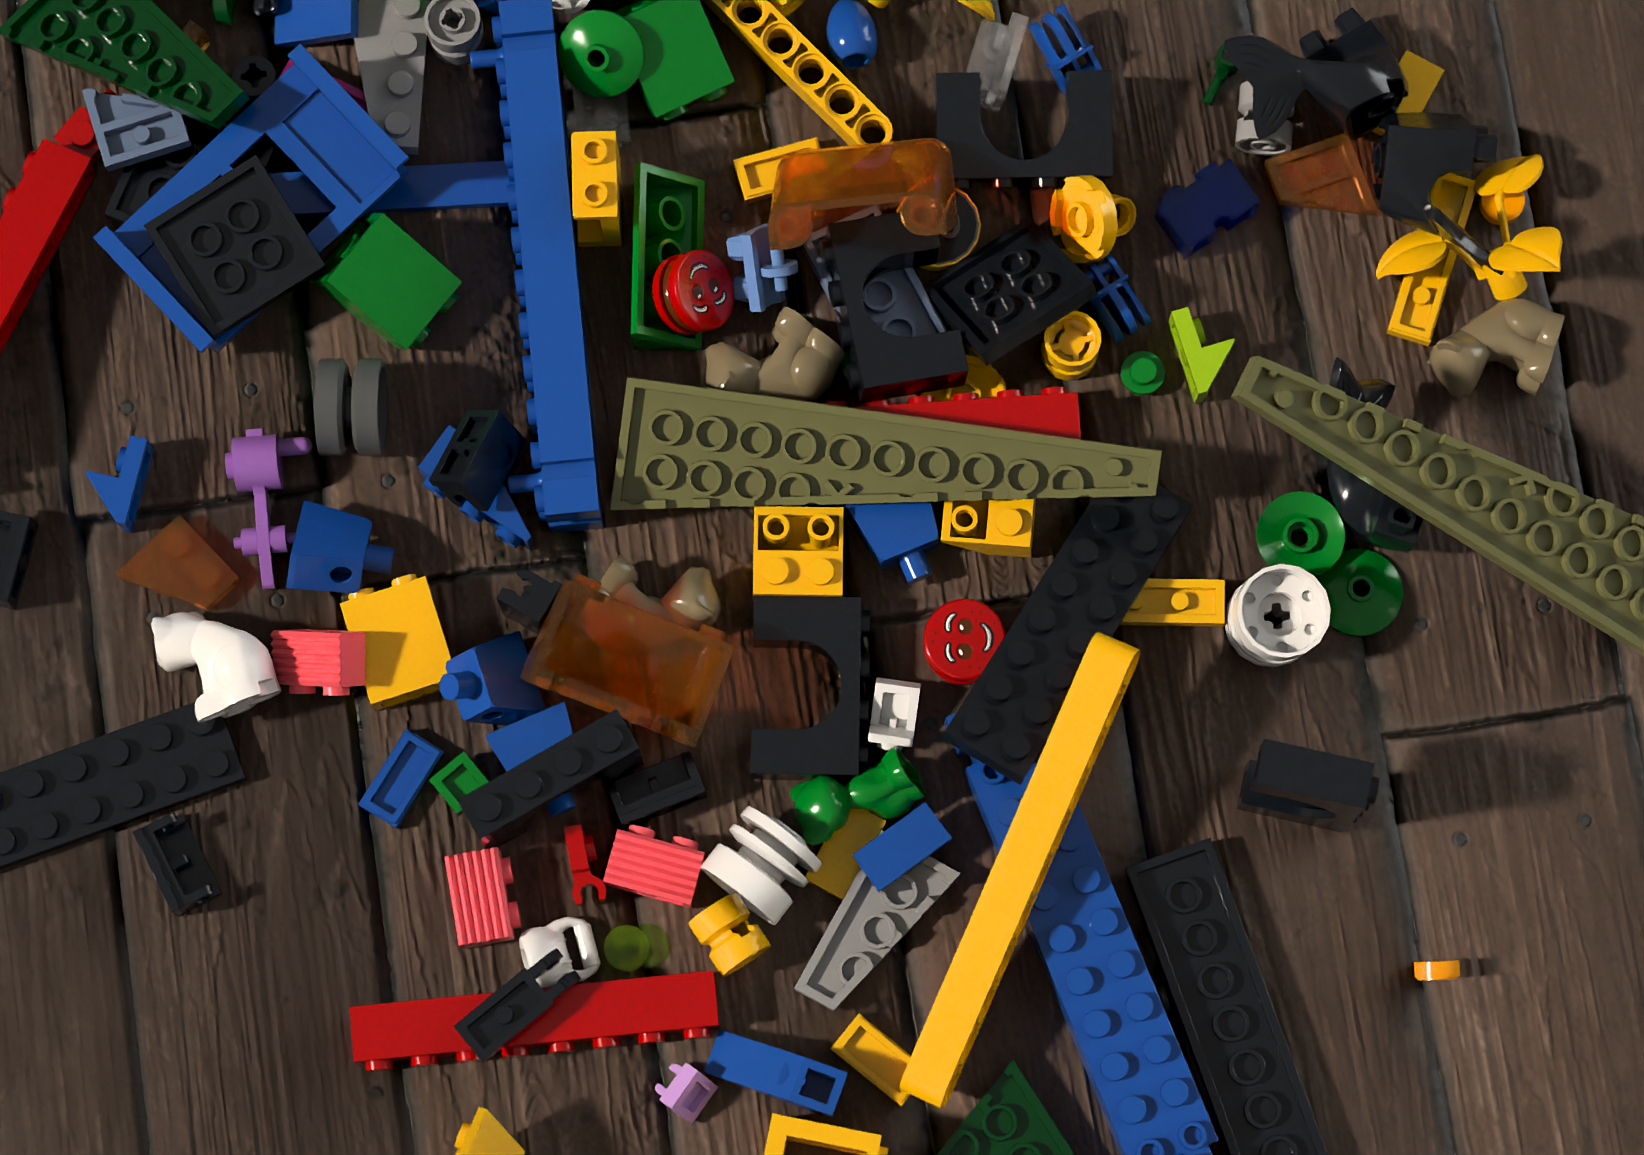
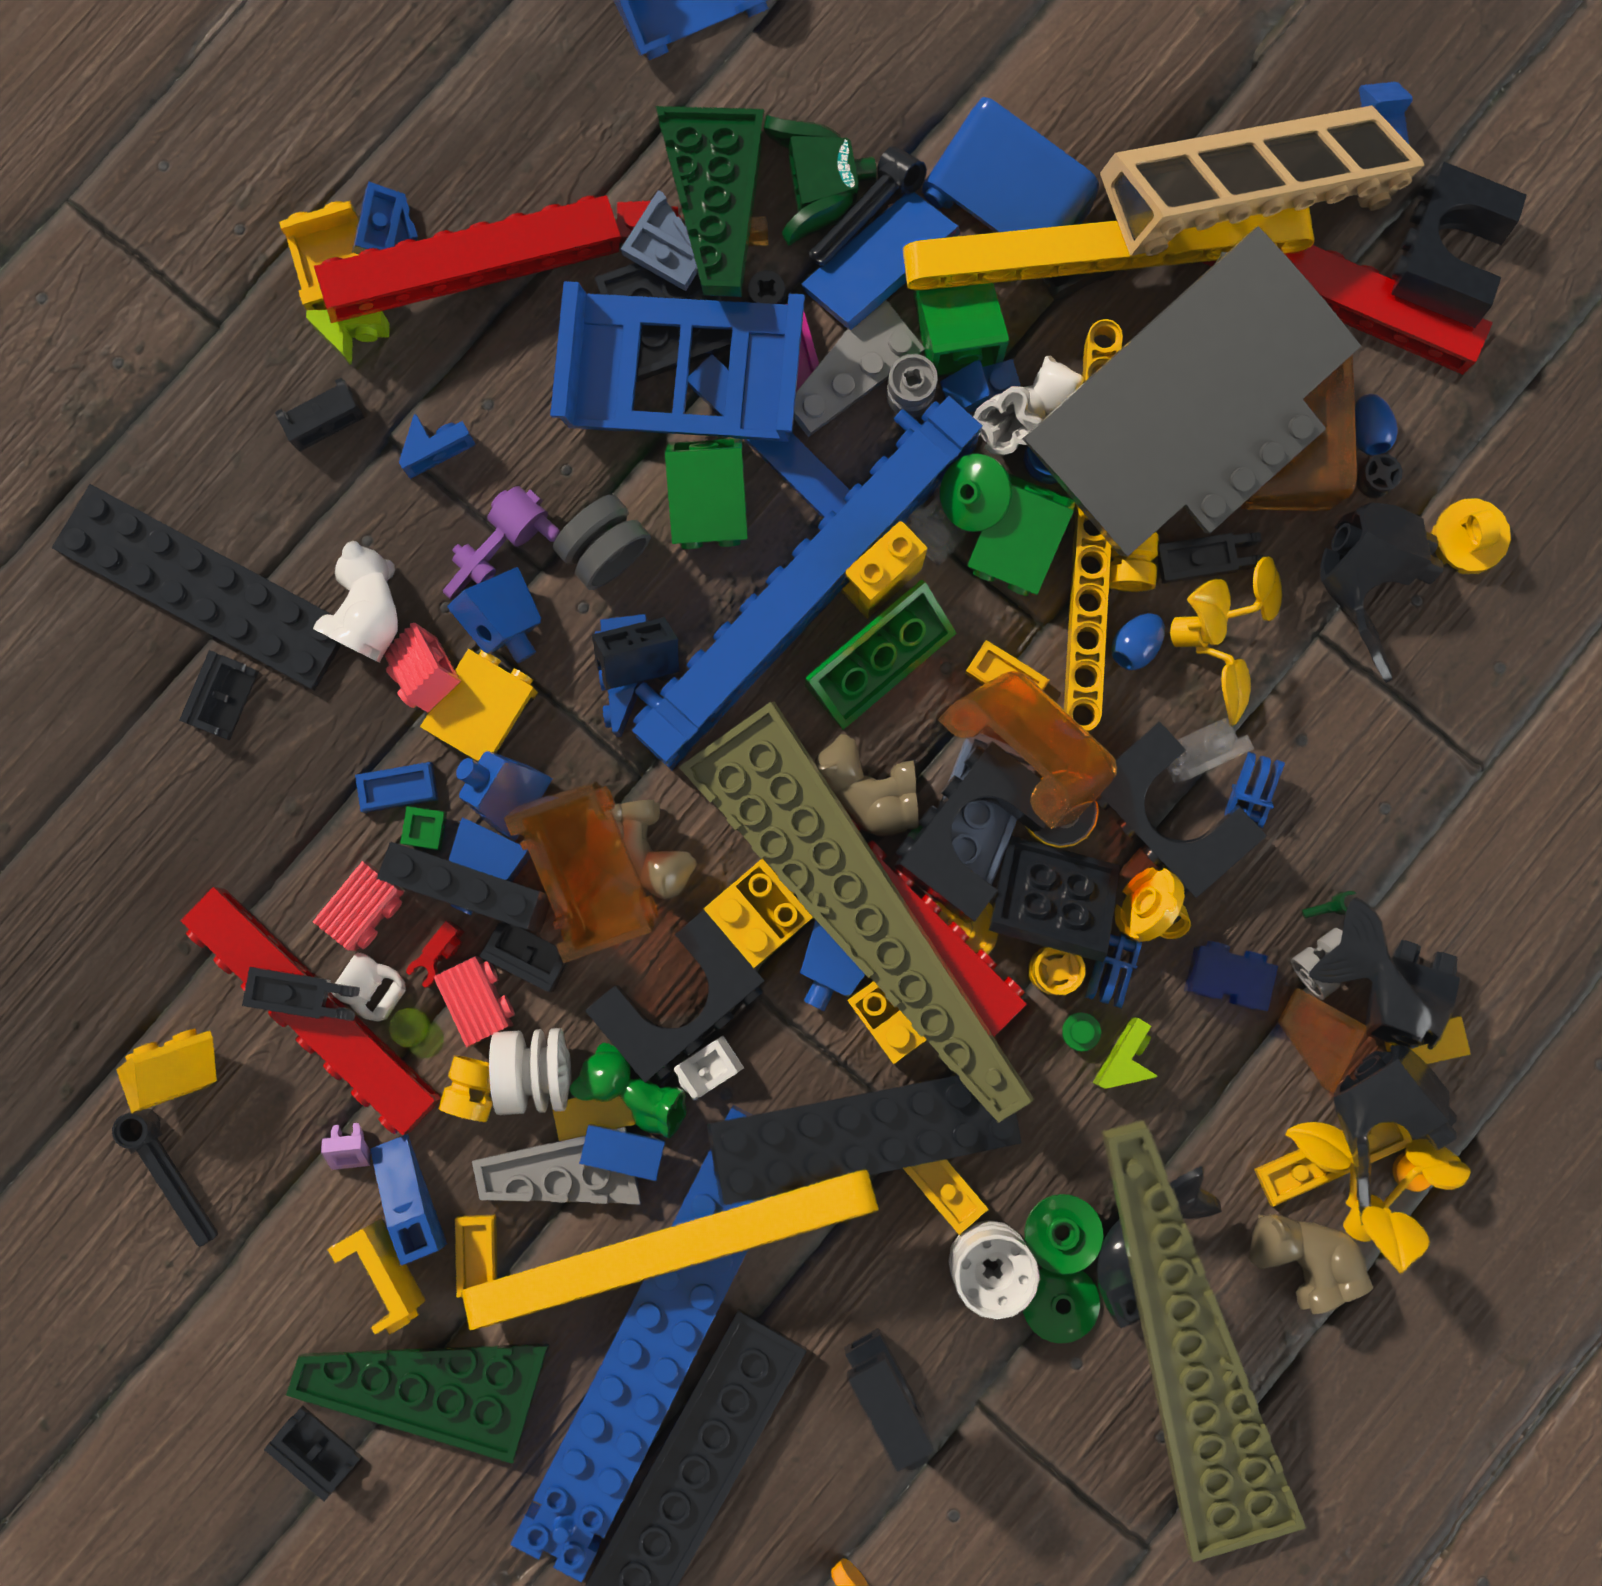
camera: 50 degrees right, 5 degrees up
(181, 567) = (413, 529): clear orange wing -> none
(235, 246) = (640, 376): black plate -> none
(534, 604) = (573, 773): black hinge -> none
(693, 292) = (871, 692): red head -> none
(764, 269) = (922, 729): medium blue hips -> none
(962, 640) = (797, 1071): red head -> none

